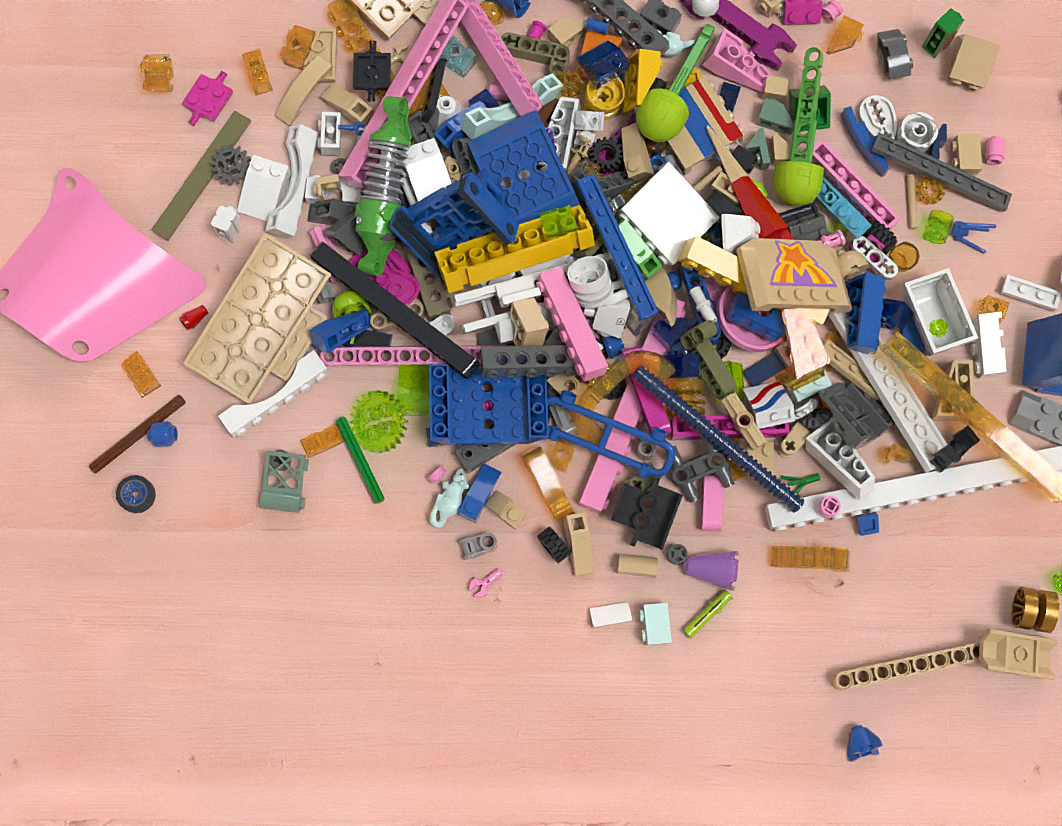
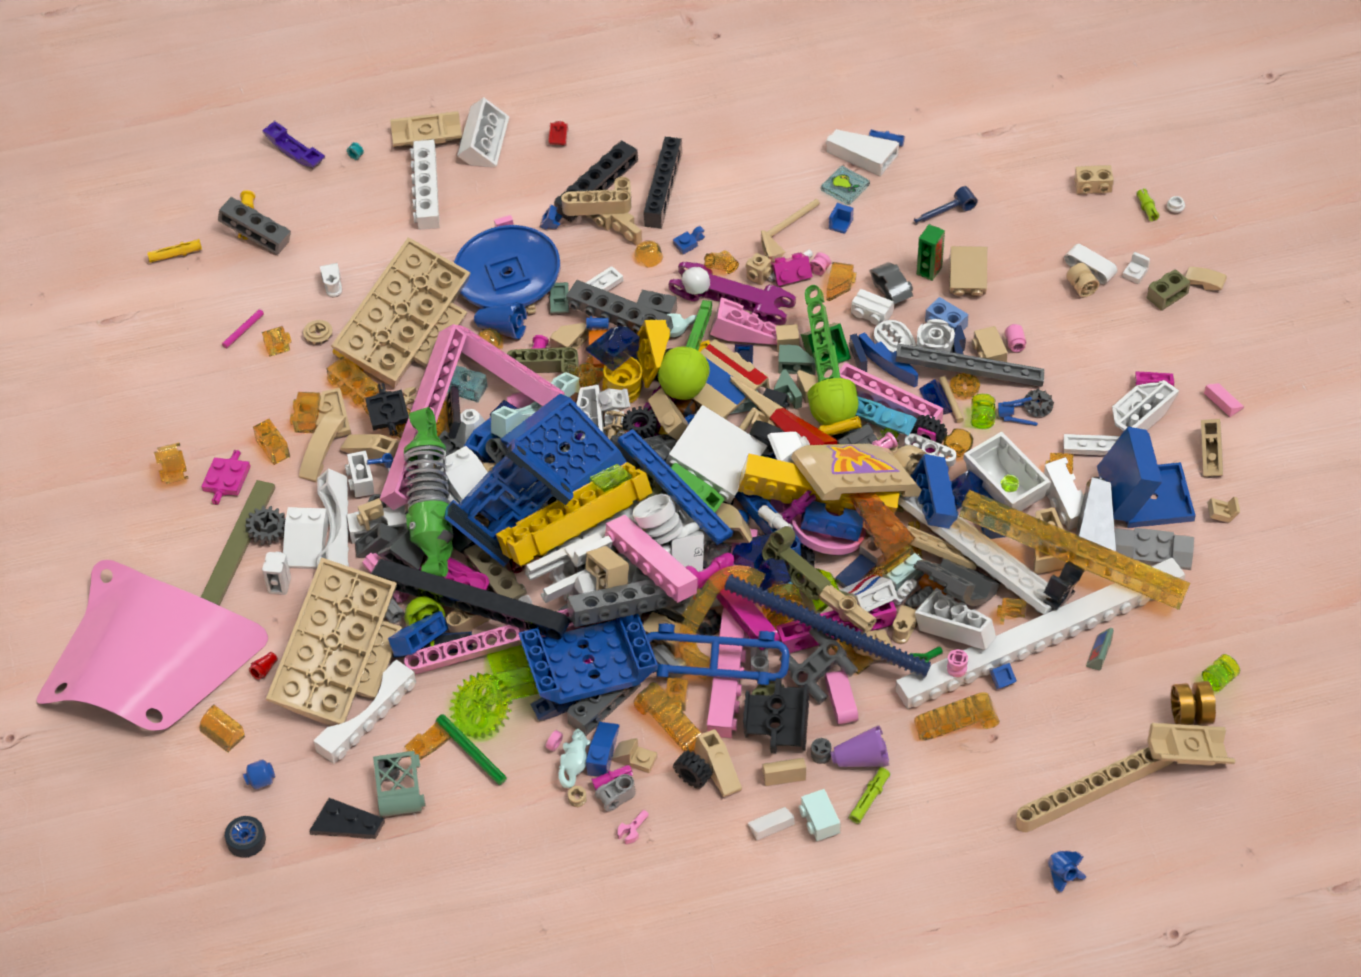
camera: 10 degrees left, 25 degrees down
(136, 434) = (230, 785): reddish brown axle -> none
(229, 502) = (343, 819): none -> black wing
(438, 540) = (571, 796): none -> tan bush
(479, 527) = (611, 775): none -> dark pink axle
(634, 338) = (718, 563): none -> dark pink piece
(729, 298) = (798, 506): none -> magenta pin
(795, 210) = (841, 426): none -> yellow pin
(838, 126) = (858, 352): none -> dark blue tile
(866, 76) = (871, 307): none -> white brick
(897, 195) = (934, 393): none -> clear blue slope
(939, 106) = (947, 312): none -> medium blue brick
(967, 520) = (1100, 649): none -> sand green slope
(1002, 226) = (1032, 406): none -> dark grey gear
(1008, 384) = (1096, 514): none -> slope

